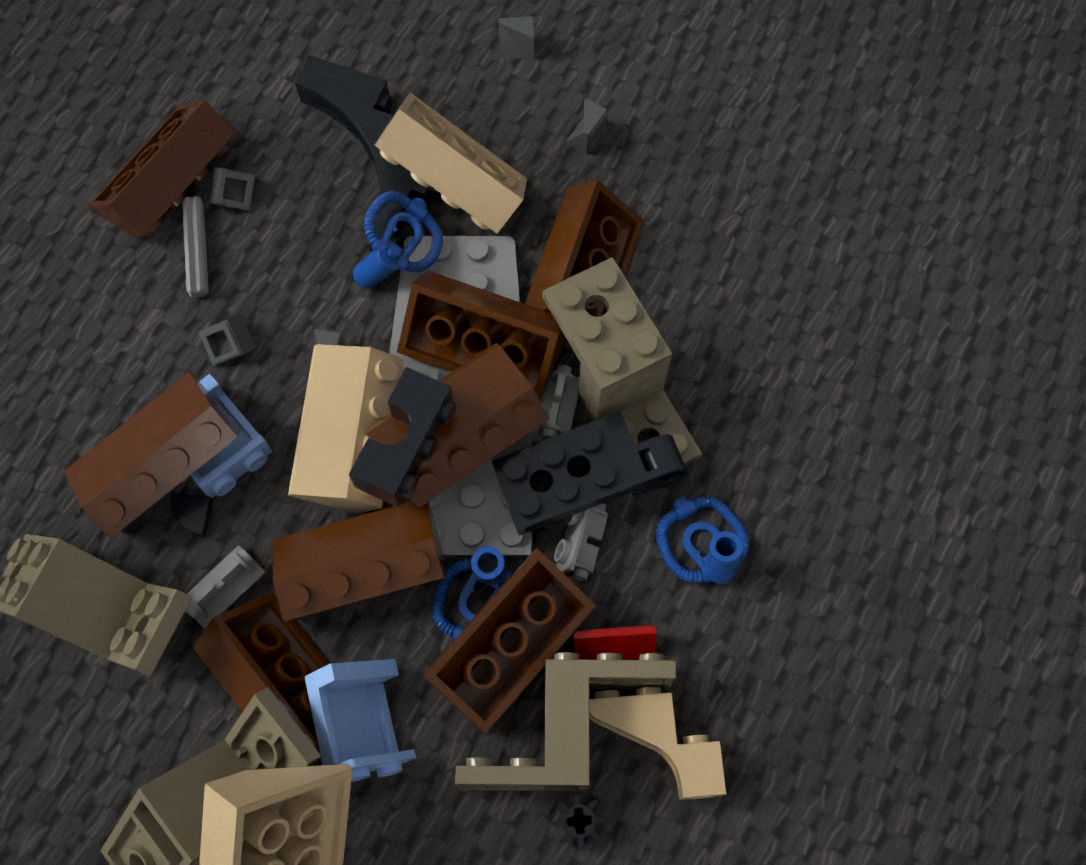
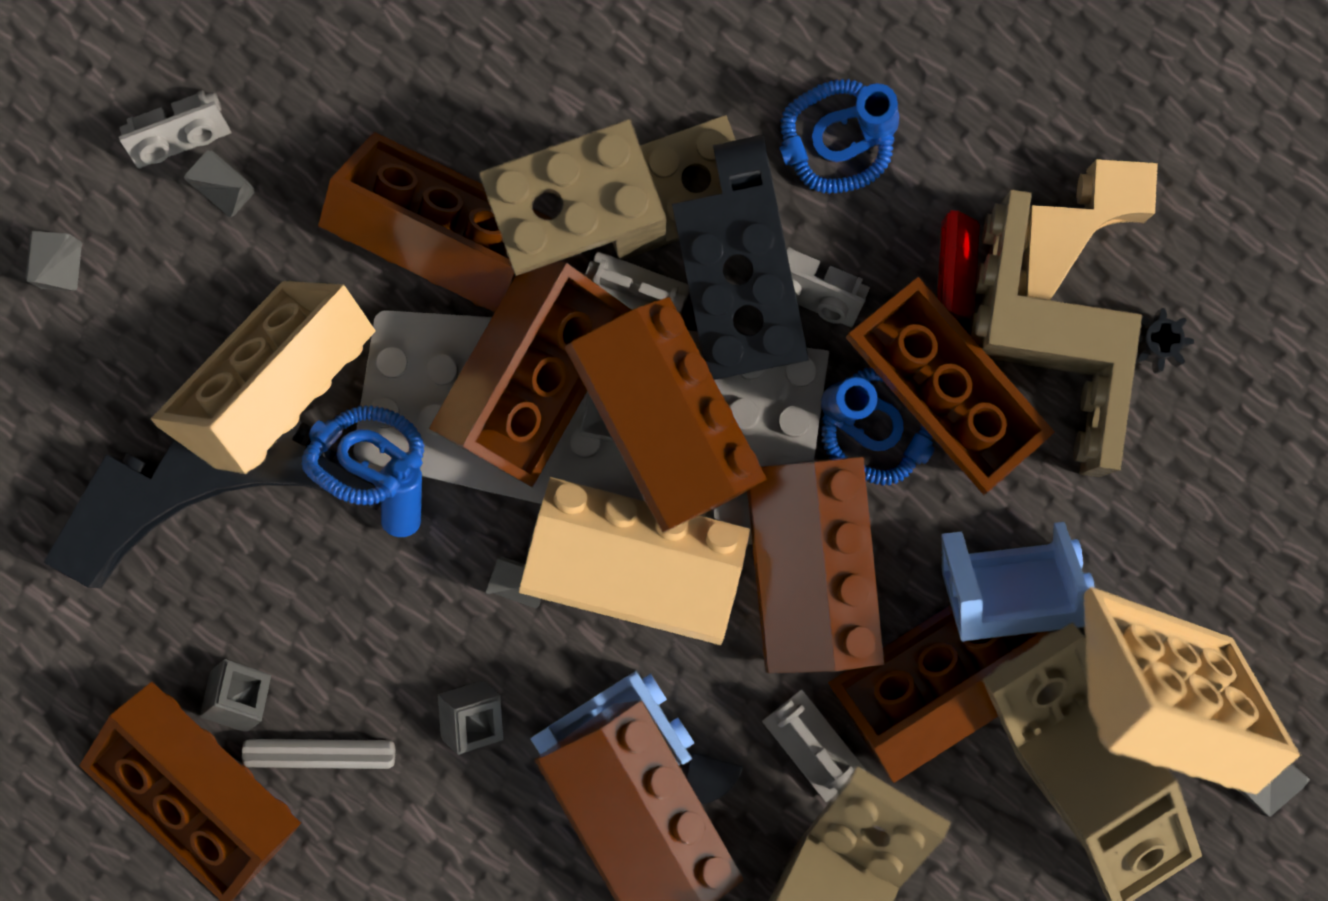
camera: 80 degrees left, 15 degrees up
(392, 469) = (655, 447): black arch -> none
(616, 91) = (154, 137): none -> light grey hinge

